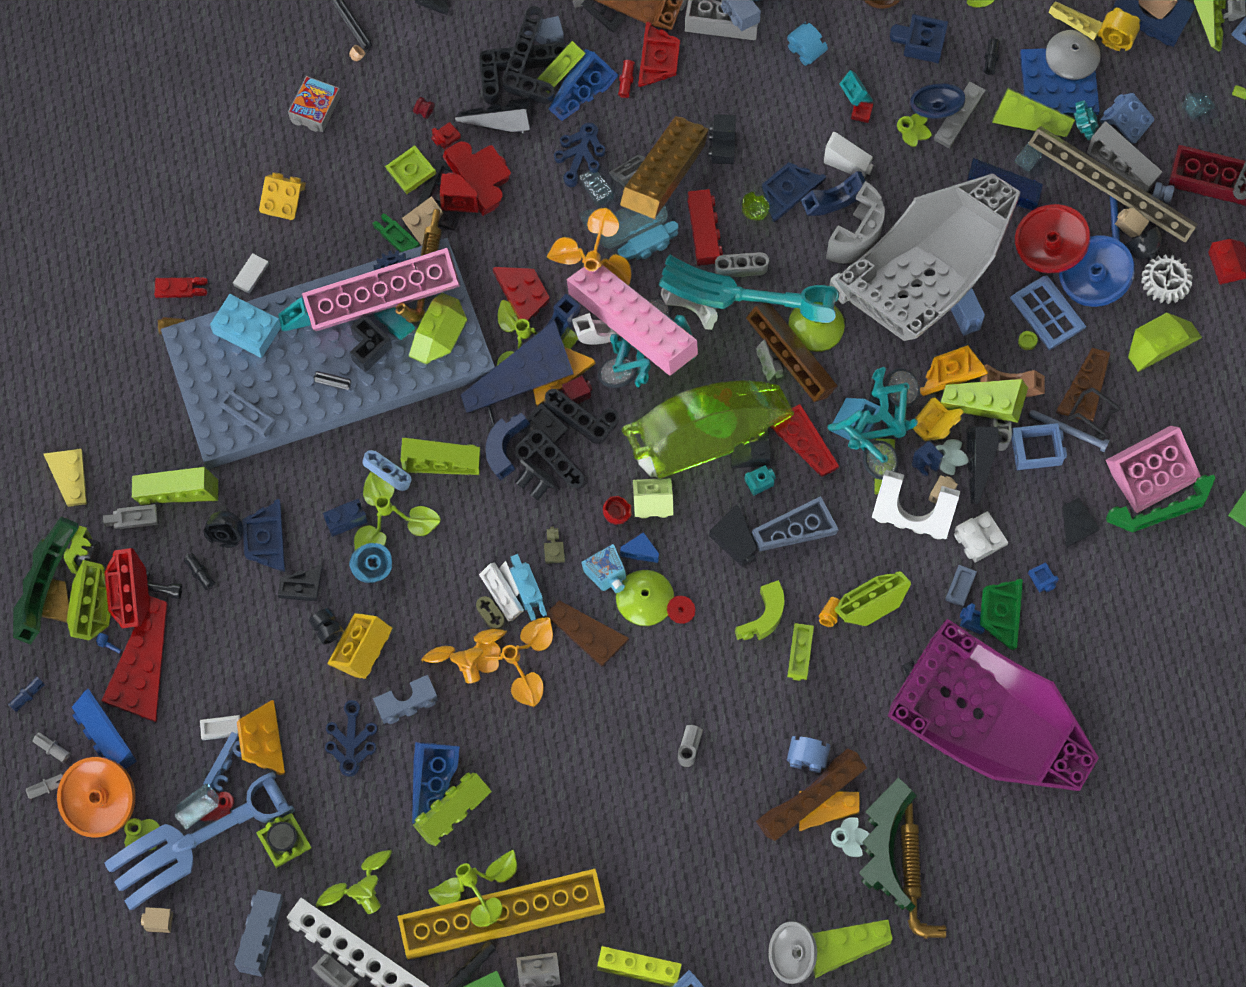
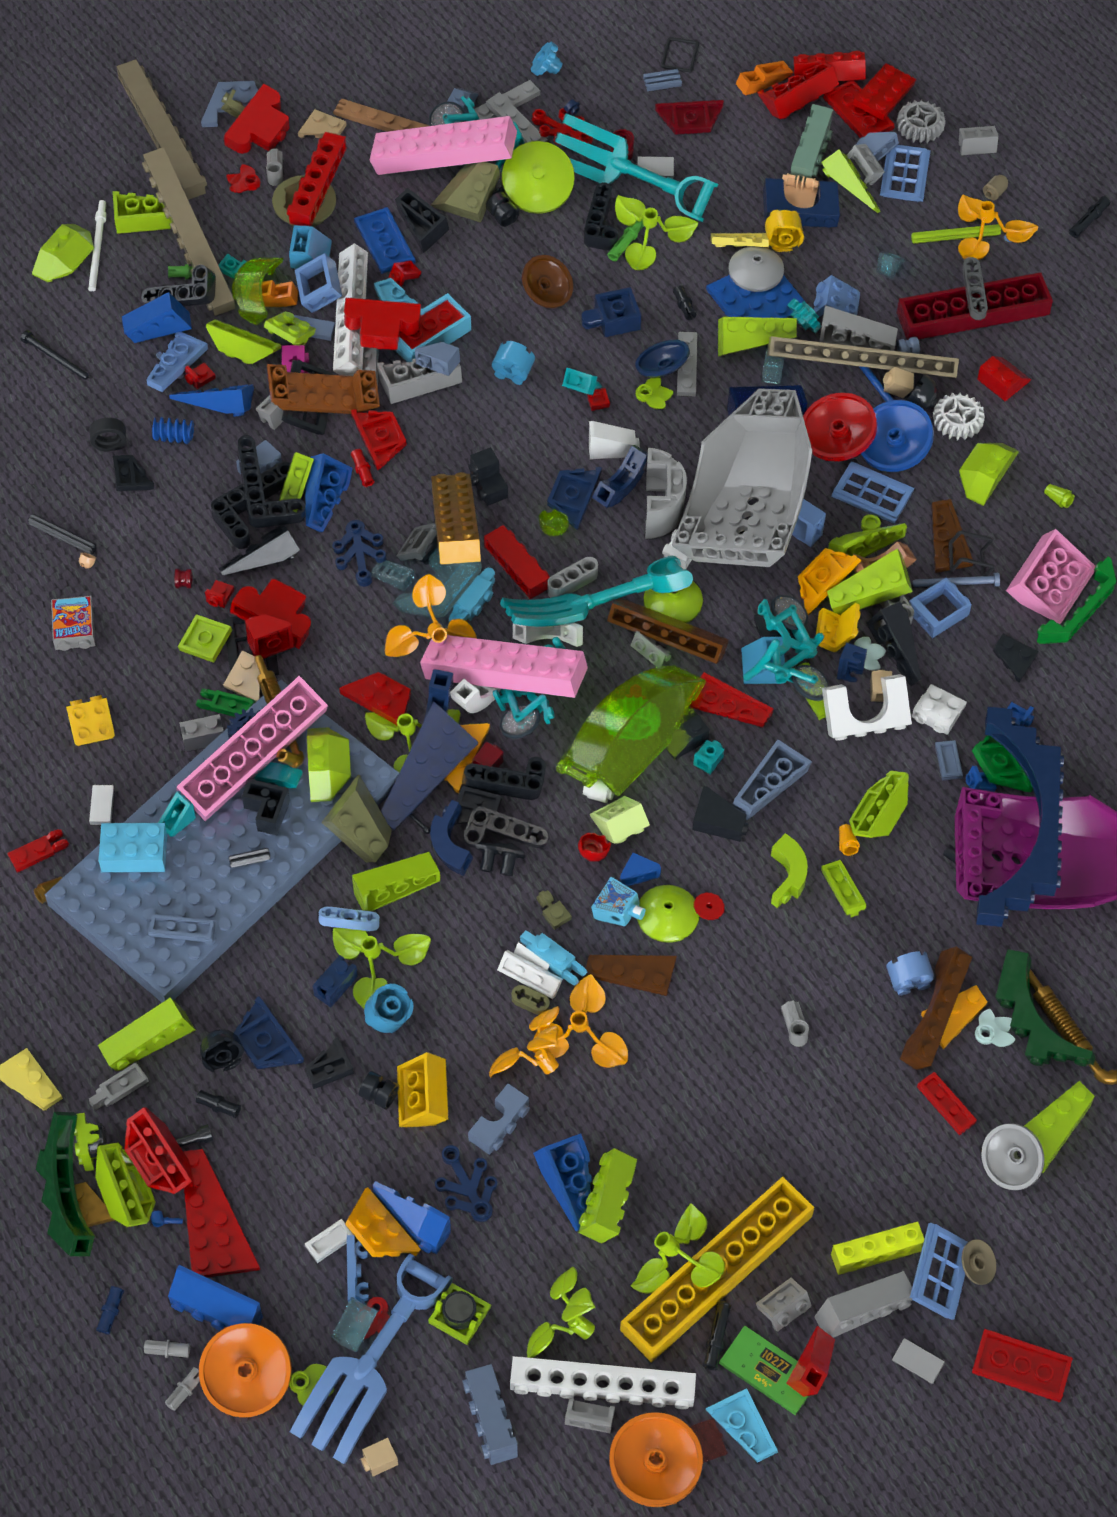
camera: 30 degrees left, 10 degrees down
(295, 754) = (425, 1224): none -> blue wedge
(360, 250) = (200, 732): none -> light grey brick
(438, 393) = (359, 822): none -> olive wedge
(771, 878) = (946, 1103): none -> red plate
(965, 724) = (1040, 870): none -> dark blue arch
(1009, 356) = (867, 541): none -> lime wedge
(1210, 397) = (1059, 495): none -> lime cone

